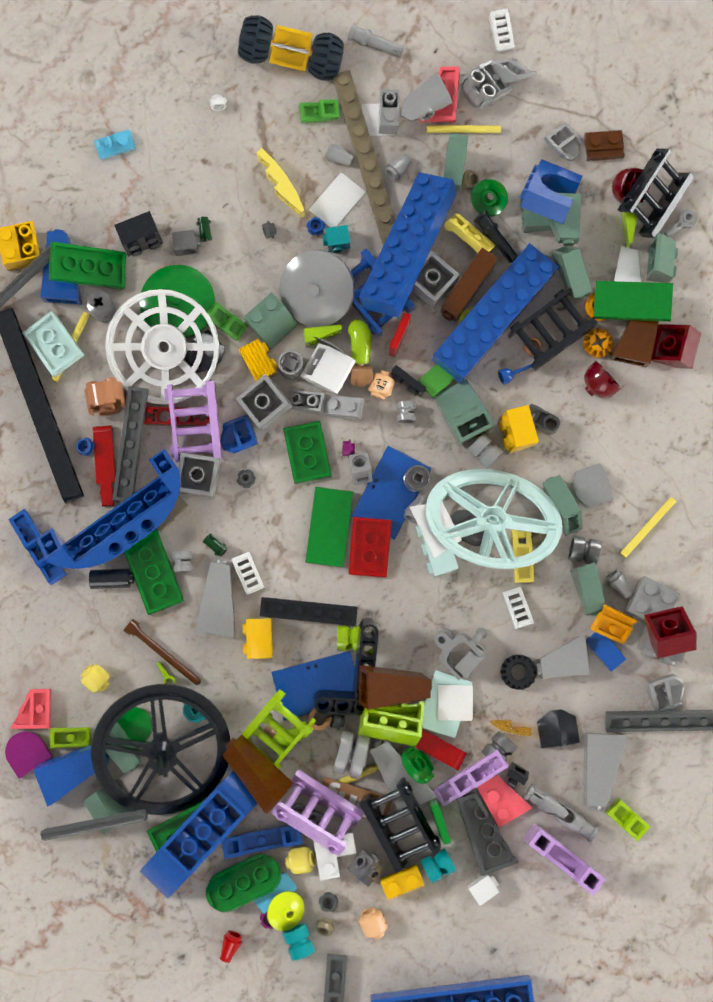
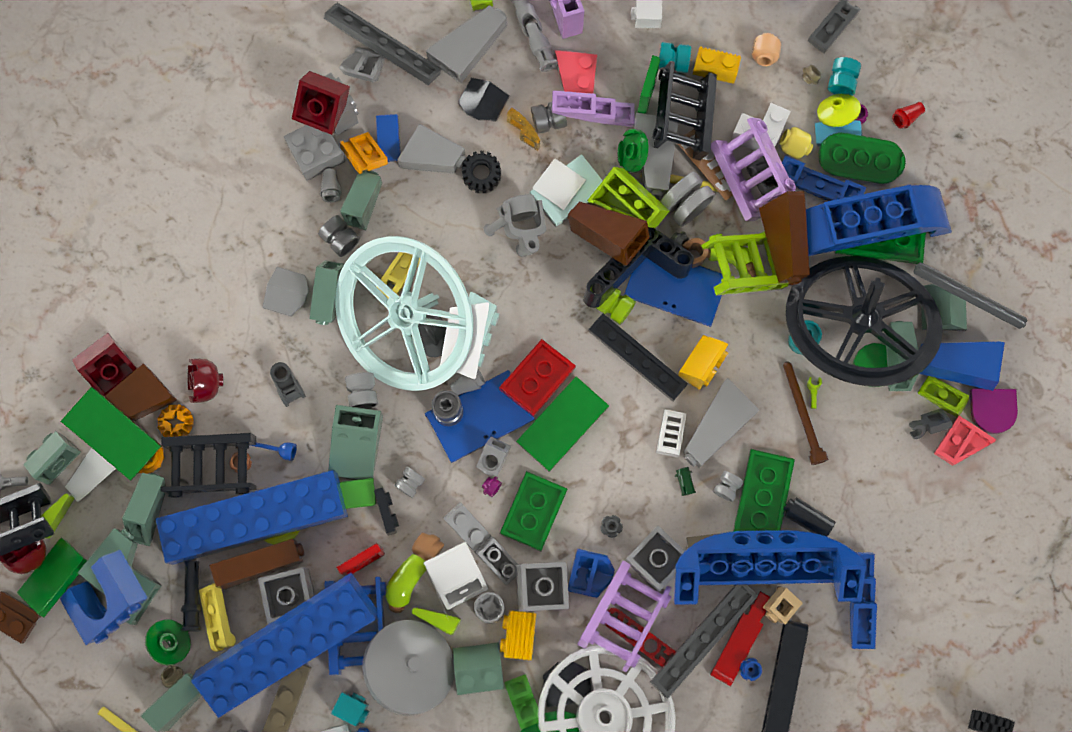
camera: 145 degrees left, 5 degrees down
(65, 710) = (932, 421): none -> dark grey plate
(91, 503) = (788, 602): none -> tan brick
(95, 678) = (884, 432): light yellow head -> none
(105, 397) = (699, 704): nougat brick -> none
(333, 902) = (798, 89): dark grey plate -> none
(366, 867) = (740, 97): flat silver brick -> none
(381, 385) = (414, 524): light nougat head -> none
(441, 750) = (599, 151): red piece -> none
(486, 842) = (616, 52): dark grey wing -> none
(516, 775) = (547, 84): black tile -> none
(518, 429) = (316, 387): yellow slope -> none
(524, 605) = (446, 210): white slope -> none
(564, 142) = (48, 648): light grey slope -> none
(597, 185) = (52, 577): none -> green tile
(648, 527) = (263, 219): light yellow bar -> none

